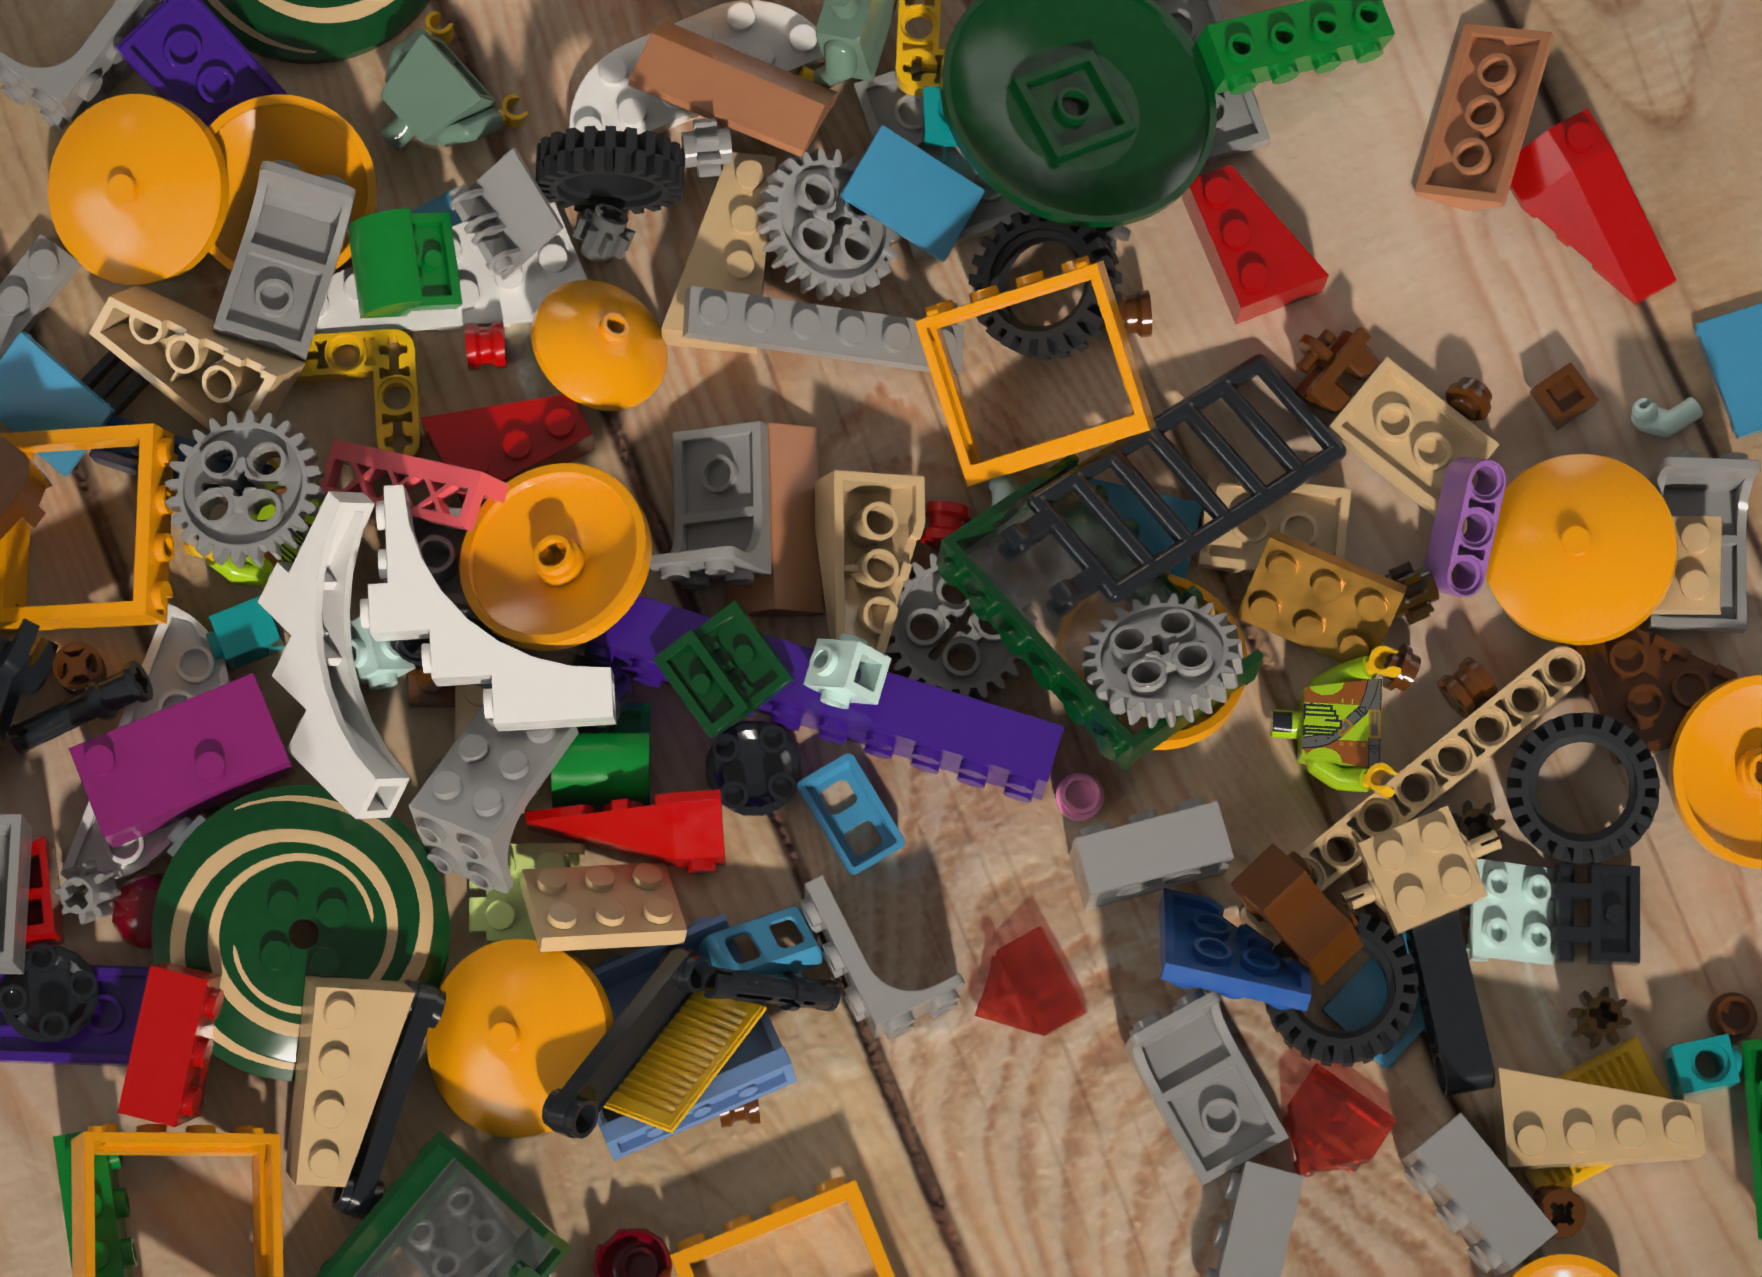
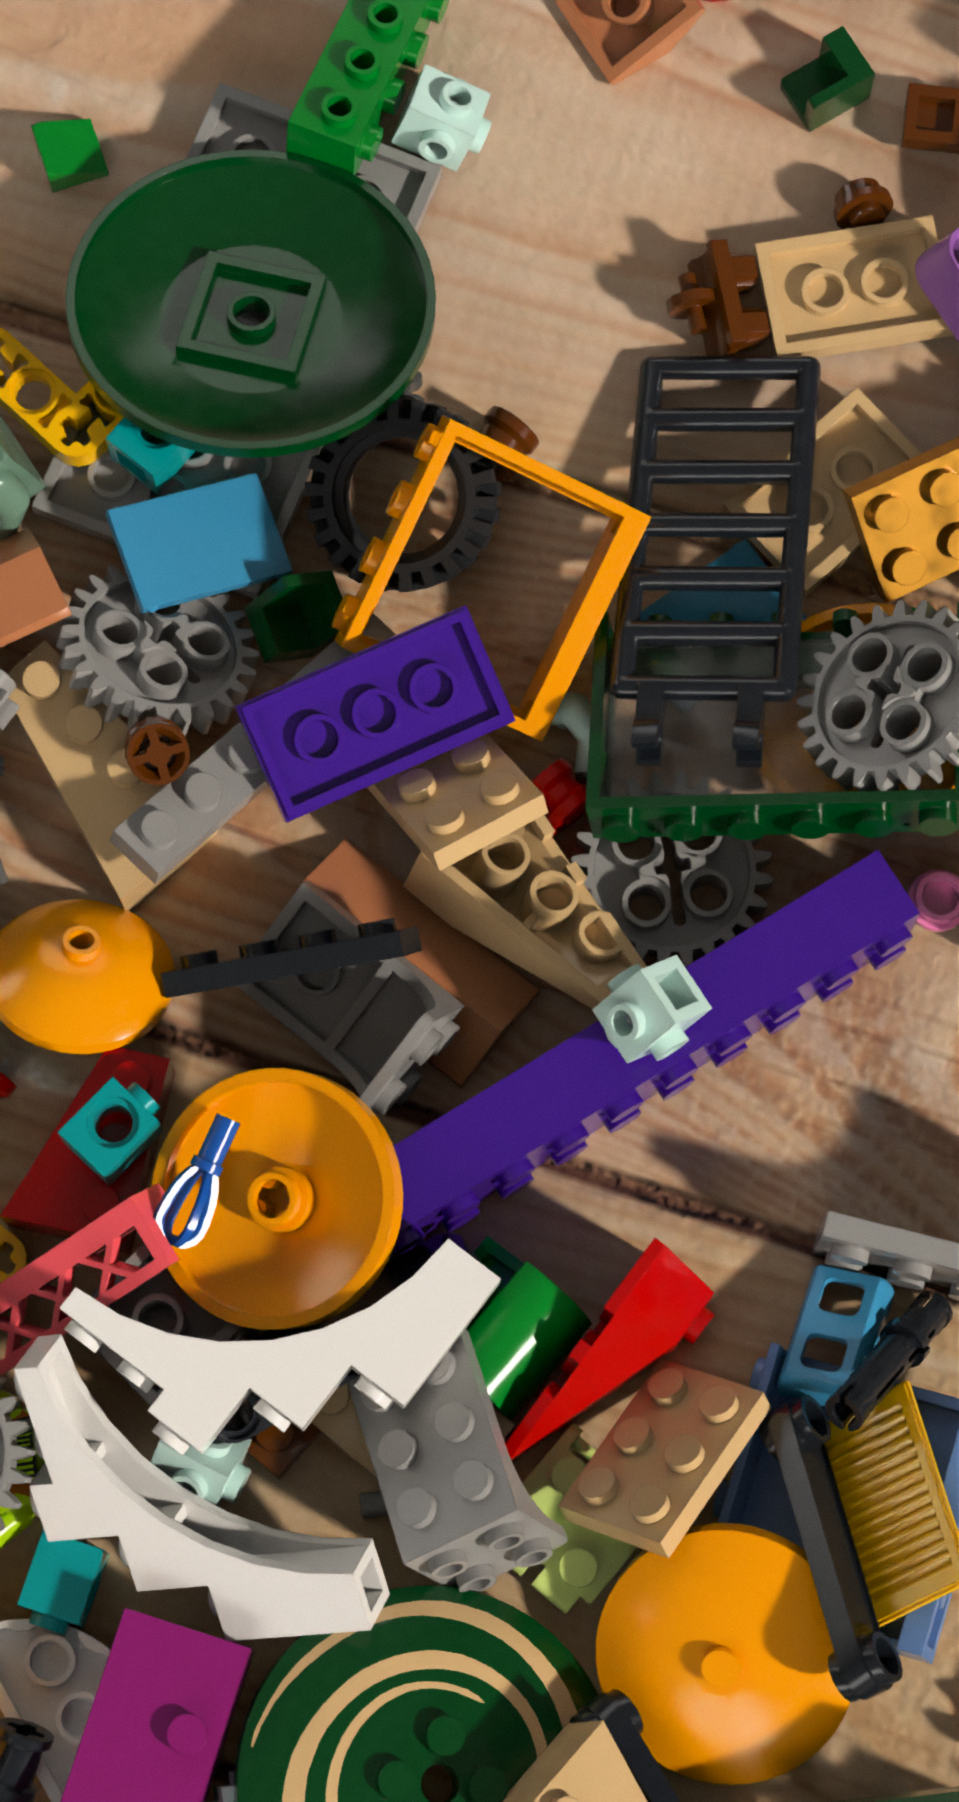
camera: 45 degrees left, 0 degrees up
(503, 419) = (106, 1158): none -> teal brick
(537, 501) = (208, 1164): none -> blue piece
(723, 461) = (315, 953): none -> black plate
(724, 669) = (538, 1129): dark green slope -> none
(753, 767) = (639, 1189): black dish -> none
(754, 277) = (159, 762): none -> reddish brown wheel
(866, 809) = (772, 1113): dark azure piece -> none
(892, 454) = (460, 800): none -> tan plate
(893, 374) = (374, 713): none -> dark purple tile
(917, 283) = (295, 616): none -> dark green panel
(1249, 247) = (533, 276): red wedge -> none
(1298, 114) = (443, 119): none -> light aqua brick
(1529, 317) = (829, 83): none -> dark green panel

